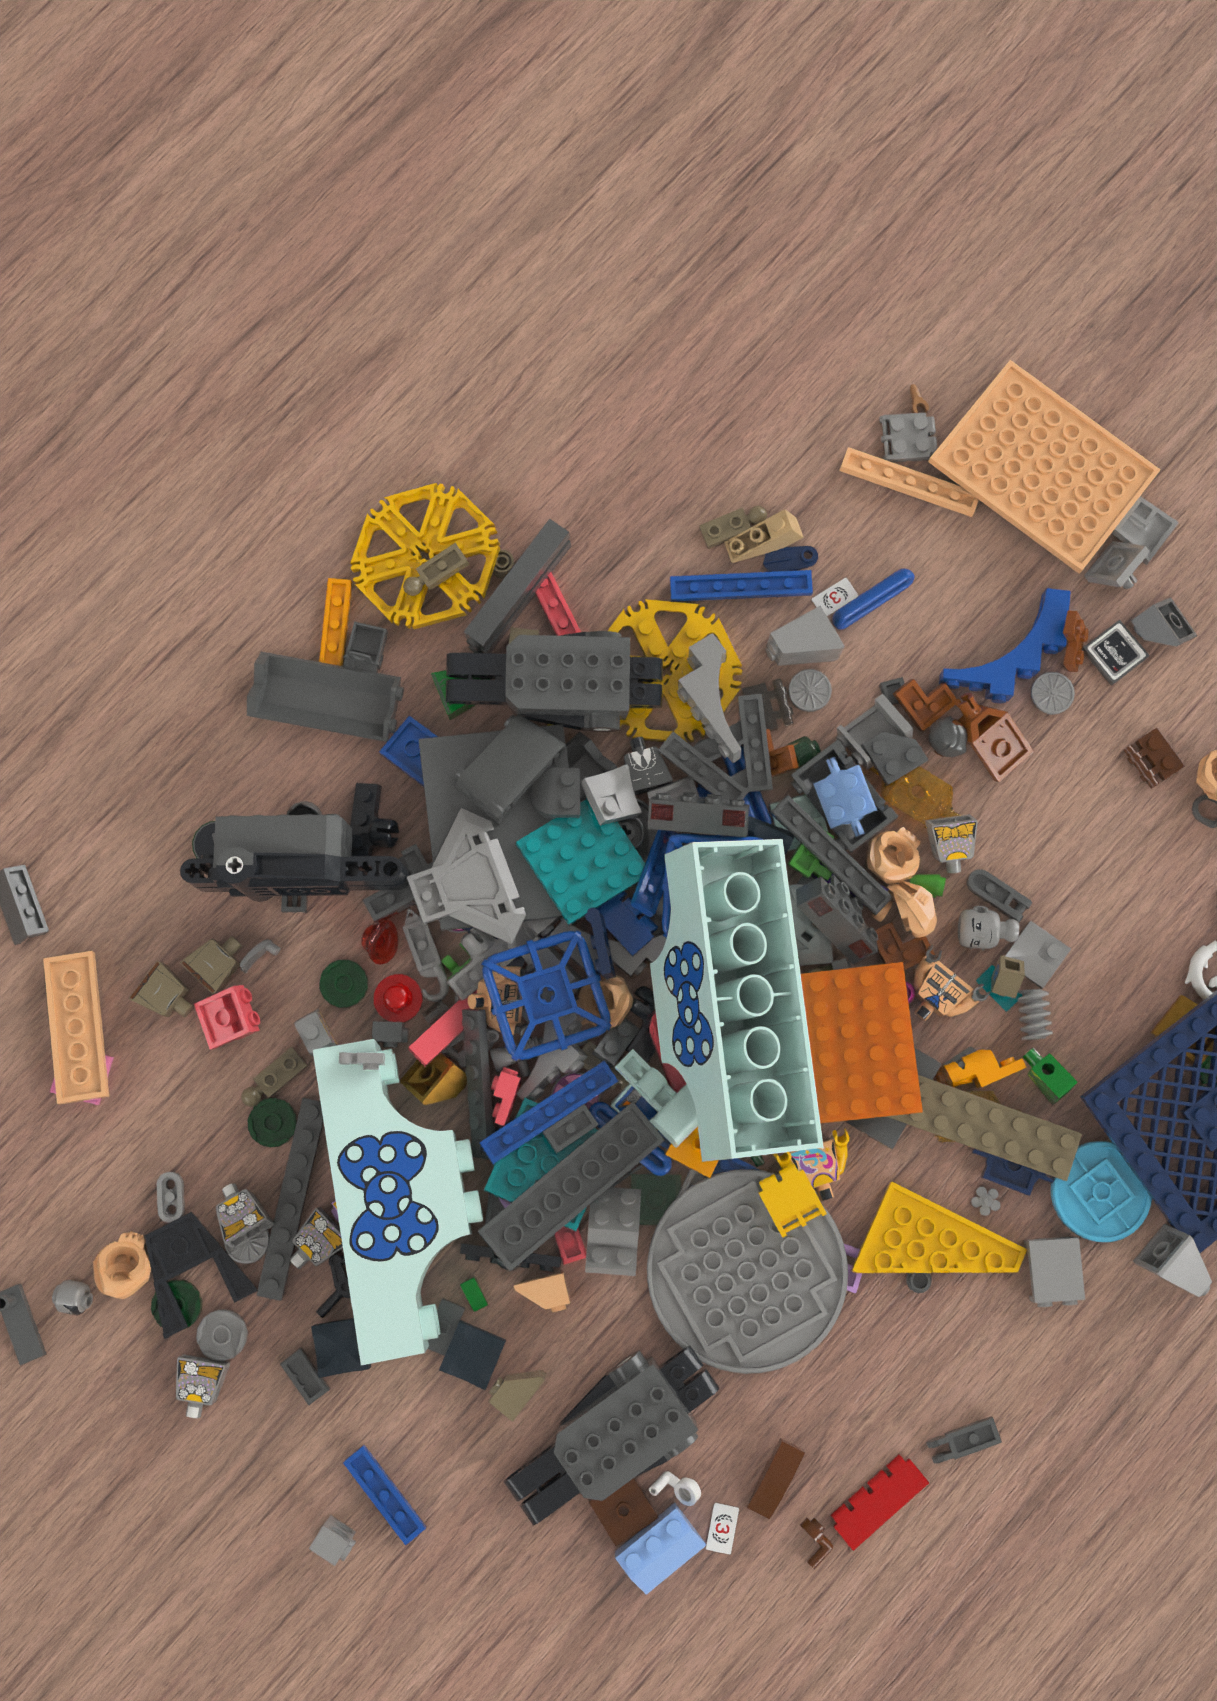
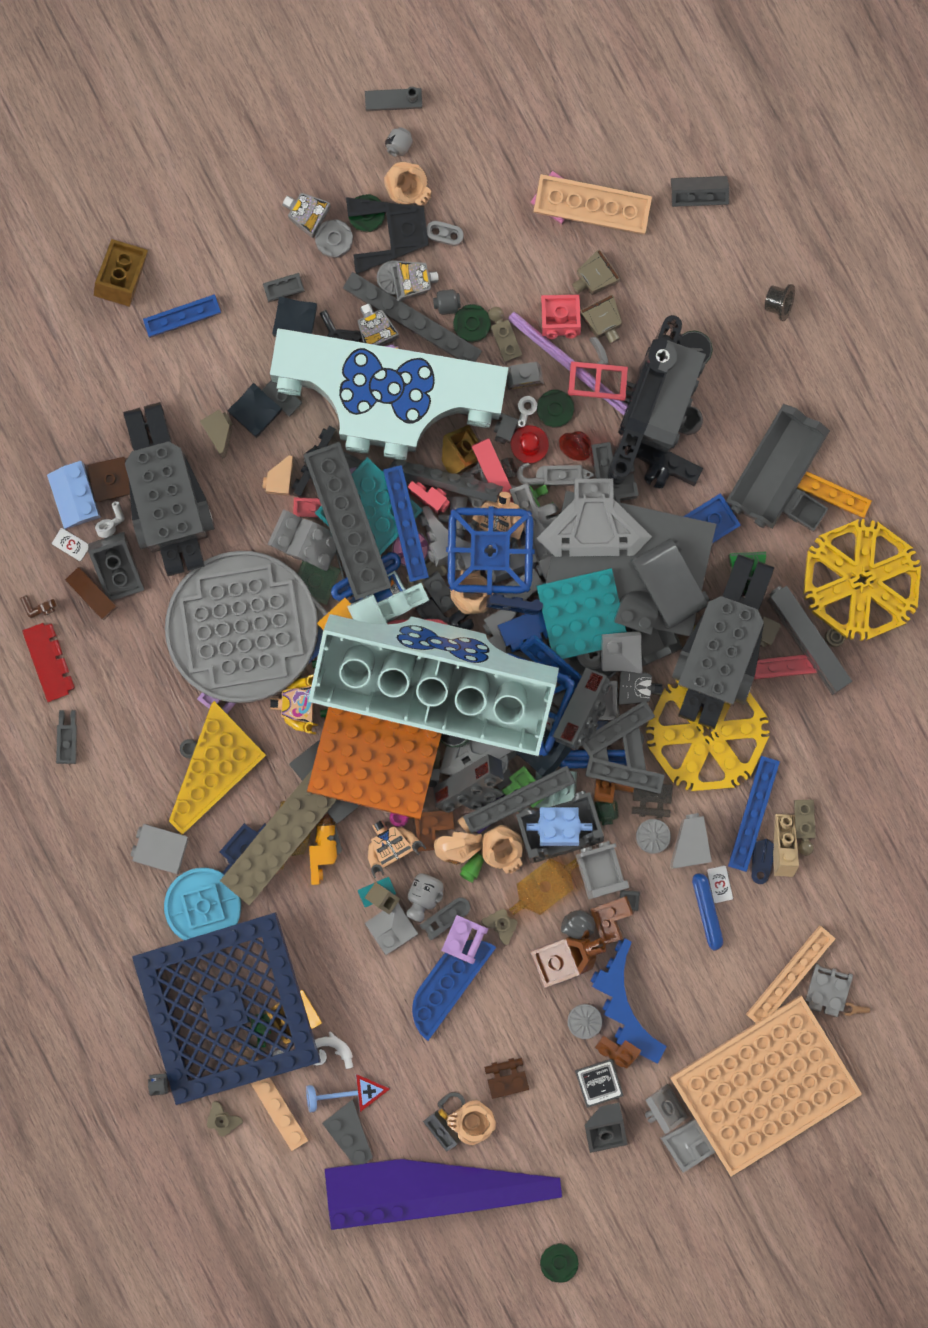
camera: 110 degrees right, 5 degrees up
(123, 762) = (780, 300): none -> clear smoke piece
(255, 1162) = (447, 302): none -> dark grey head
(276, 947) = (624, 370): none -> coral window
(282, 987) = (563, 358): none -> lavender axle
(333, 1541) = (164, 270): light grey brick -> none
(356, 1598) = (120, 273): none -> pearl gold slope
(361, 1017) = (524, 412): none -> white plate
(370, 1061) = (484, 404): light grey plate -> none
(436, 570) = (844, 583): dark tan plate -> none
(474, 1294) = (296, 426): green piece -> none
(570, 1128) = (388, 534): dark grey plate -> none
(701, 692) = (678, 750): light grey arch -> none
(730, 1460) = (115, 566): none -> dark grey slope
(790, 1198) = (280, 674): yellow plate -> none
(894, 755) = (578, 877): dark grey plate -> none
(952, 840) = (499, 897): light grey torso -> none
(986, 820) = (495, 920): none -> dark tan animal
(986, 1200) = (226, 820): light grey plant -> none
(1017, 870) = (458, 936): none -> lavender plate
(1034, 1014) = (347, 908): light grey piece -> none
(1055, 1084) = (291, 901): green torso -> none
(1073, 864) = (445, 987): none -> blue plate
(1176, 1259) = (132, 938): light grey slope -> none

